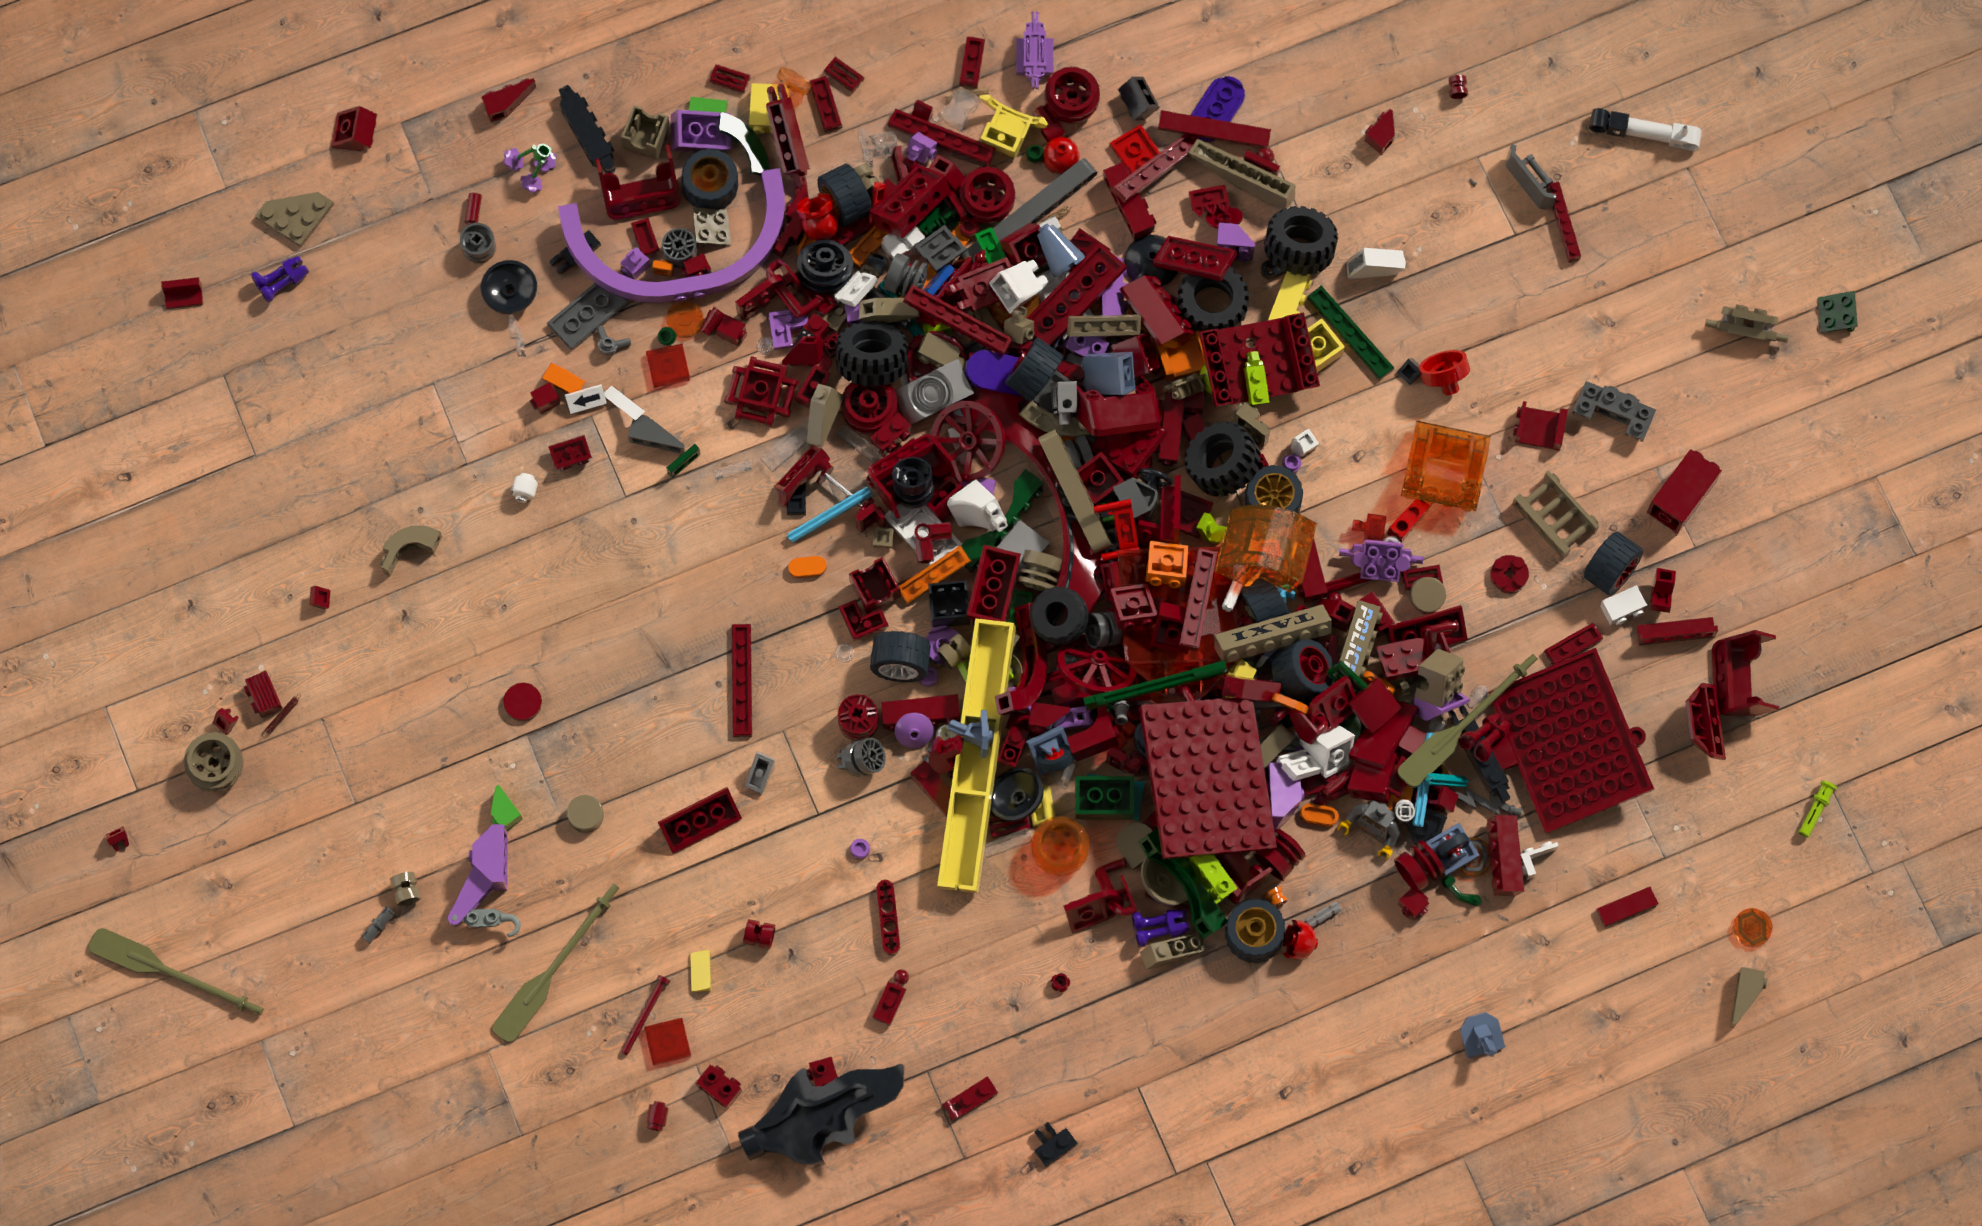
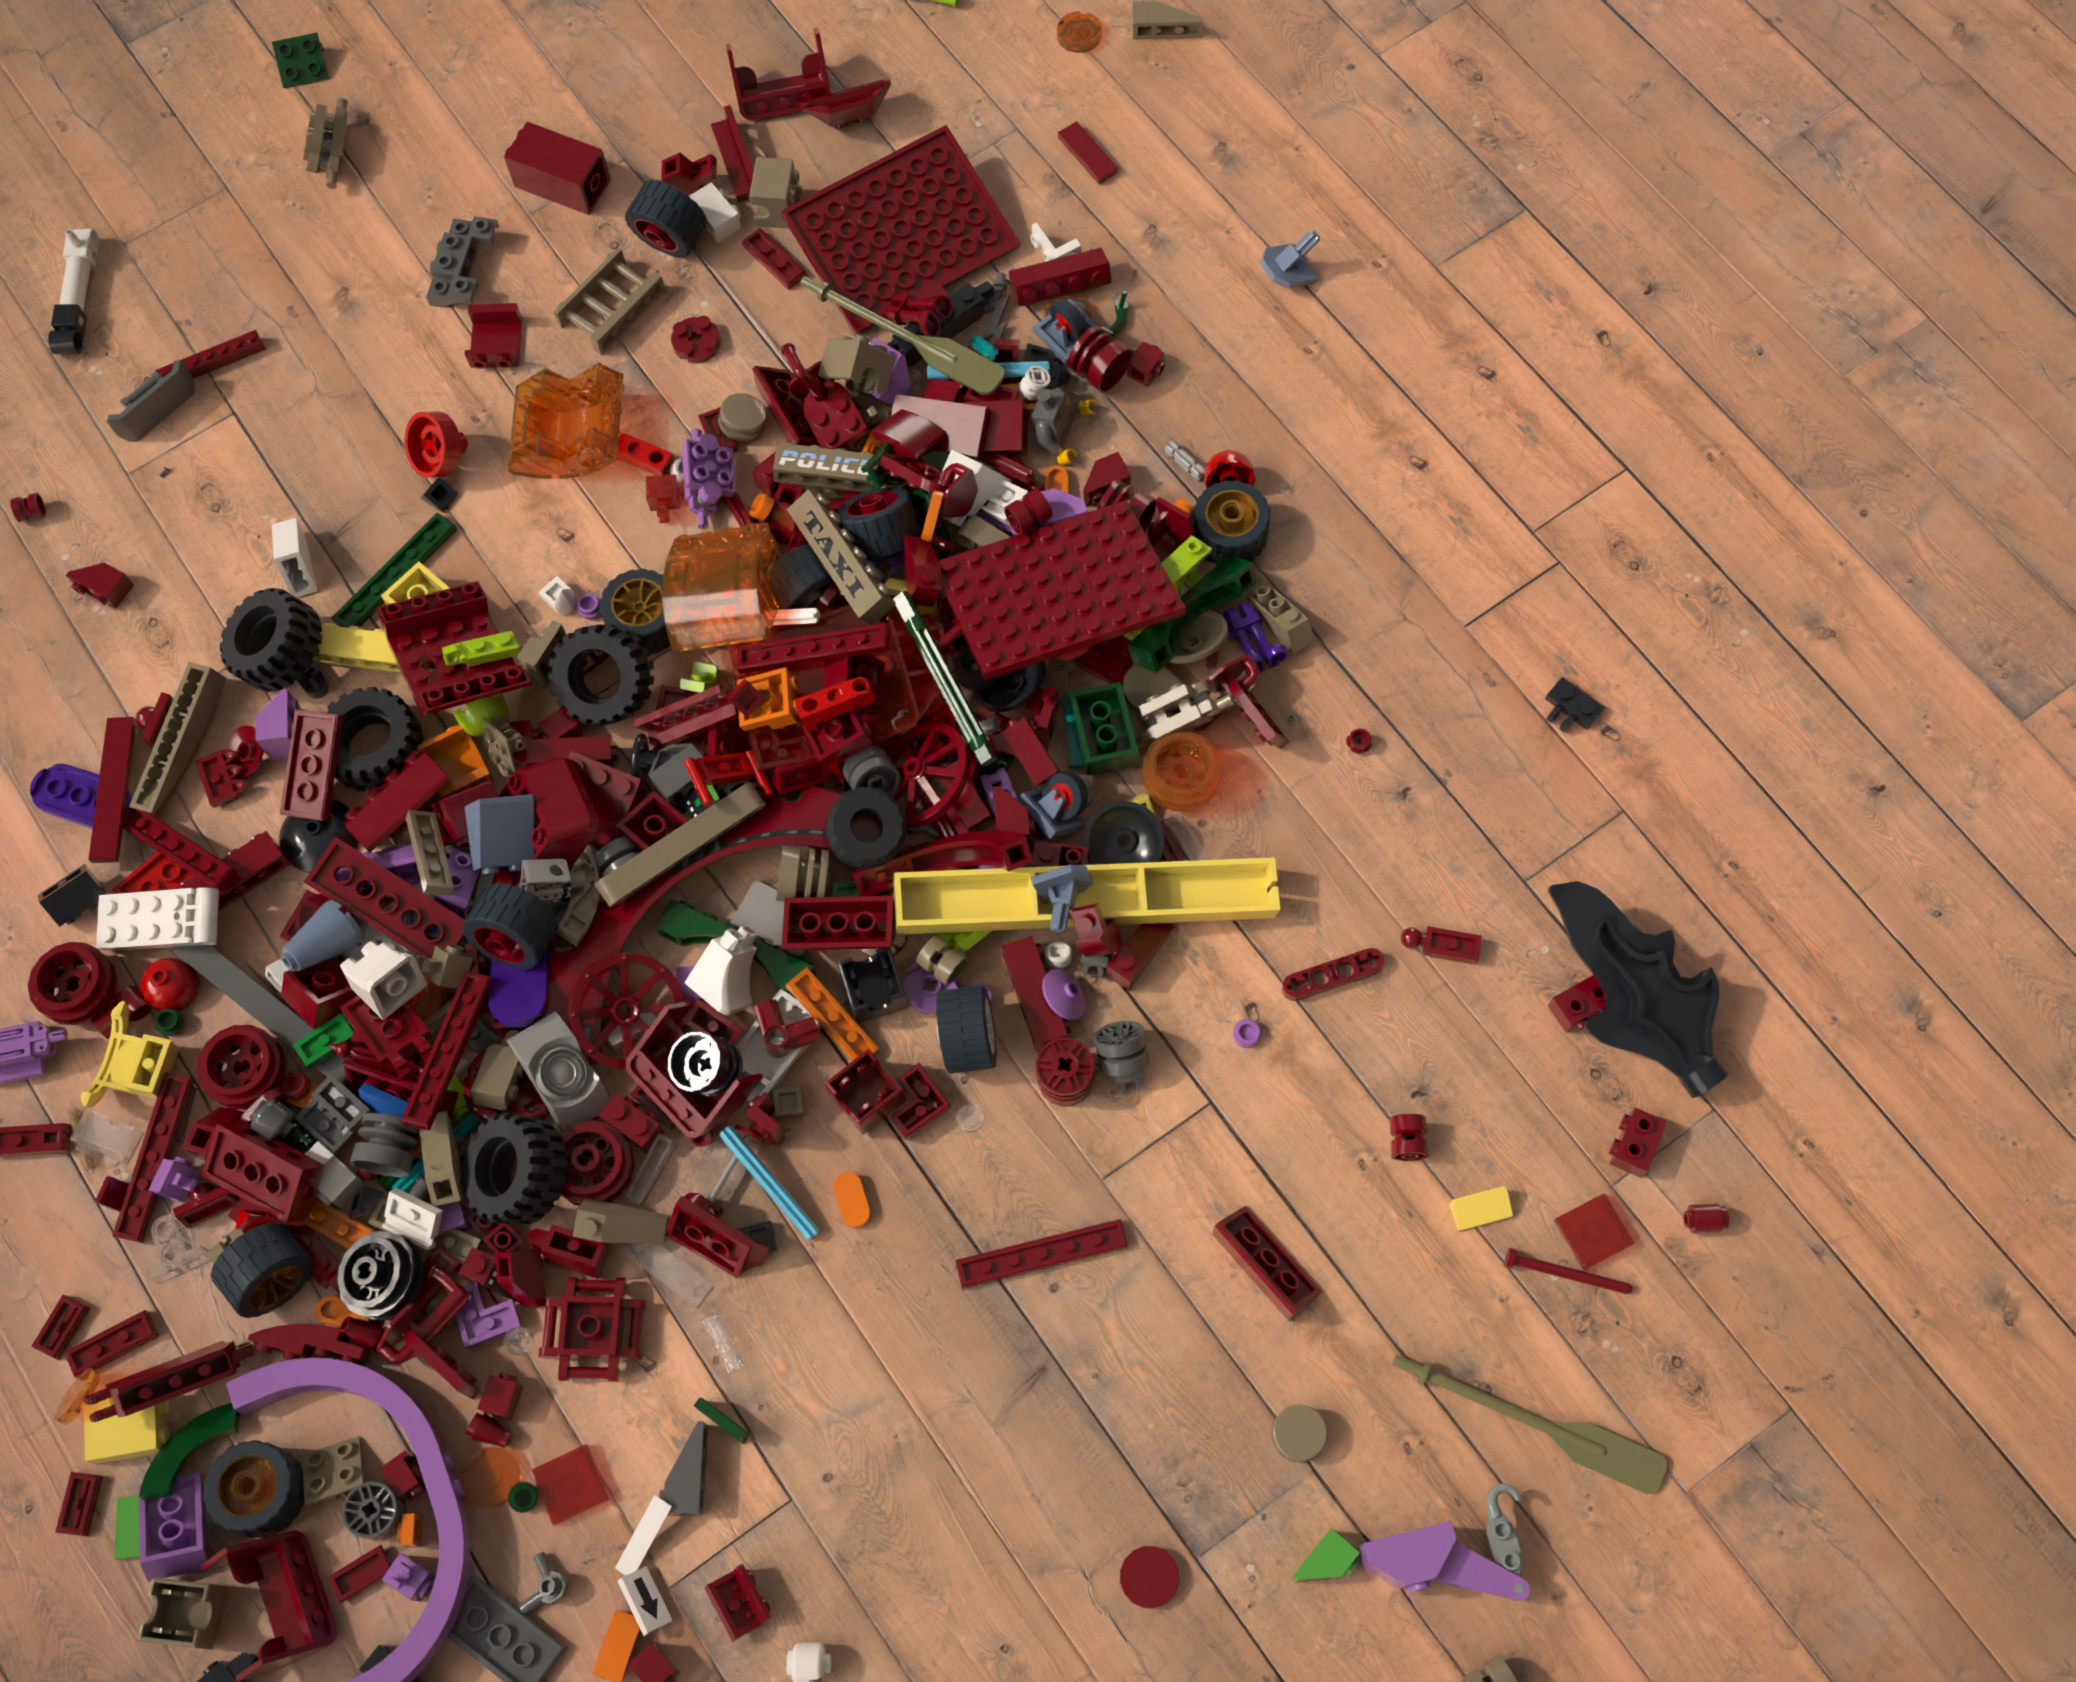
camera: 100 degrees left, 5 degrees down
(760, 772) = (1177, 1190): light grey slope -> none
(792, 252) = (362, 1331): none -> dark red cone
(818, 217) = (301, 1299): red tile -> none
(942, 209) = (272, 1119): none -> dark grey head
(970, 1098) = (1546, 818): dark red plate -> none
(1097, 852) = (1178, 710): none -> dark tan piece
(1103, 150) = (157, 919): none -> white hinge
(1149, 603) = (834, 701): none -> red leg
(1166, 545) = (745, 698): none -> dark red tile
(1278, 773) = (1025, 513): none -> dark red wheel
(1317, 850) = (1102, 475): none -> dark red slope
(1343, 594) = (761, 507): none -> orange tile
(1626, 651) = (774, 189): none -> dark tan piece

